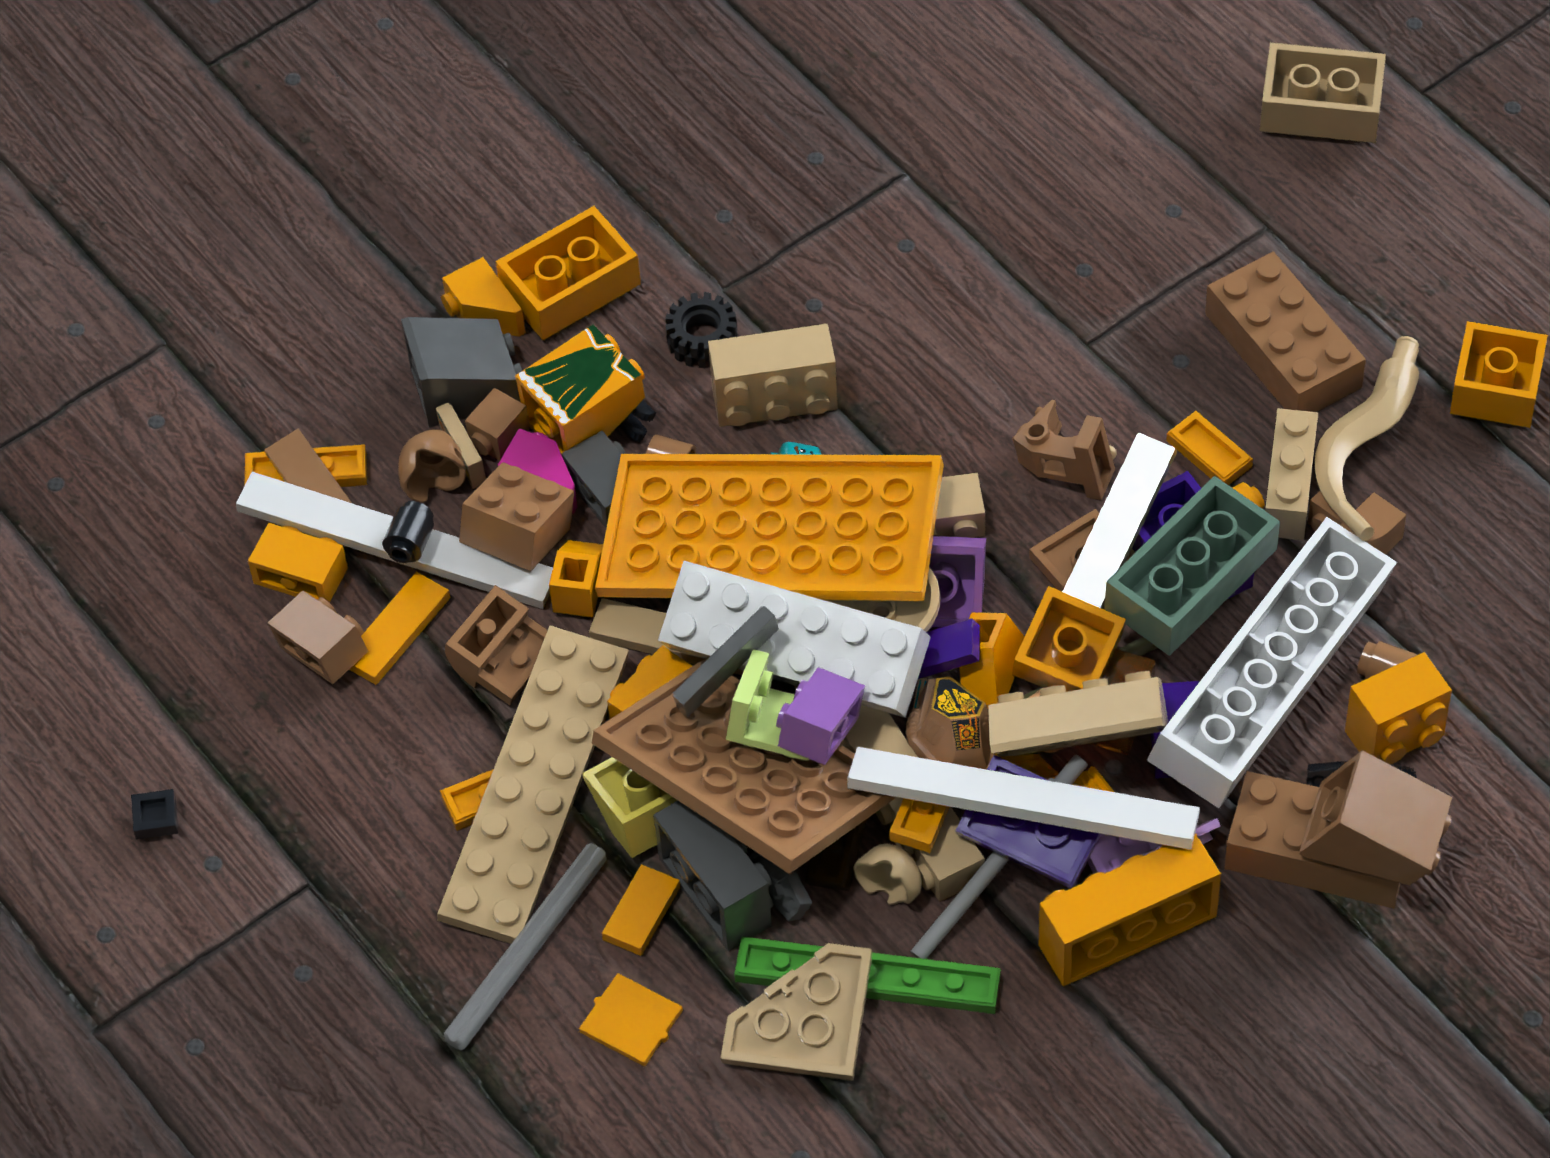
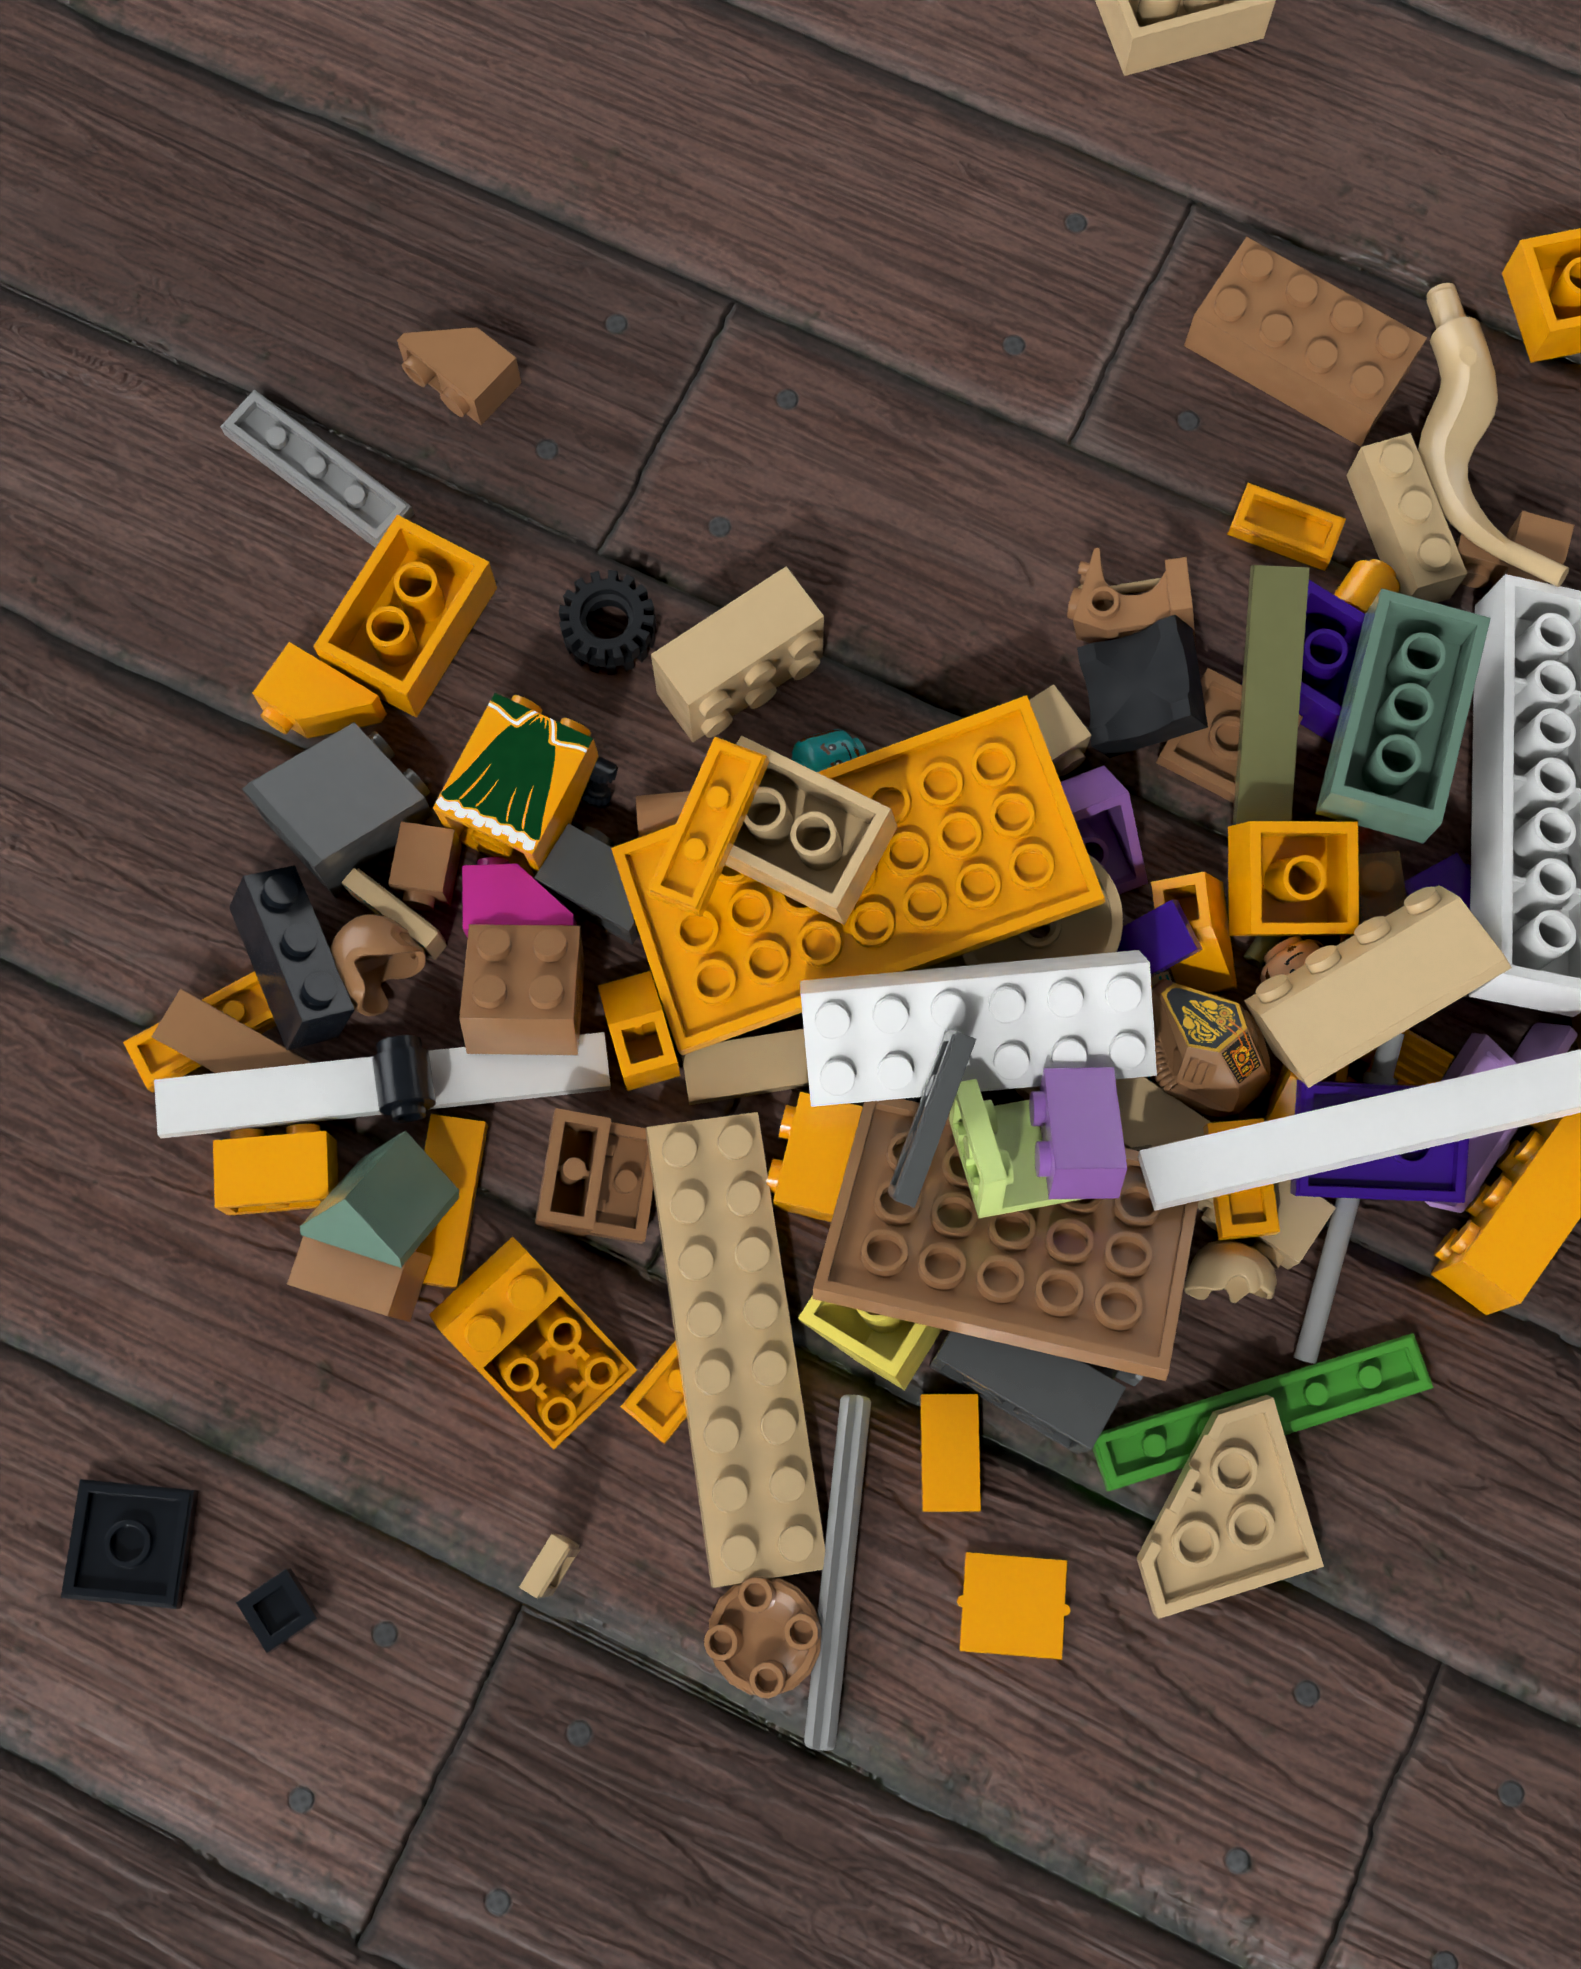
camera: 30 degrees left, 20 degrees up
(84, 742) = (130, 1544): none -> black tile
(339, 849) = (550, 1566): none -> tan tile
(355, 594) = (384, 1203): none -> sand green slope
(378, 440) = (291, 957): none -> black brick
(405, 729) = (532, 1342): none -> light orange slope
(454, 960) = (764, 1636): none -> medium nougat dish
(559, 164) = (314, 468): none -> light grey tile
(679, 440) = (708, 826): none -> light orange tile
(693, 144) = (463, 366): none -> medium nougat slope
(737, 472) = (810, 836): none -> tan brick
(1039, 499) = (1143, 687): none -> black brick

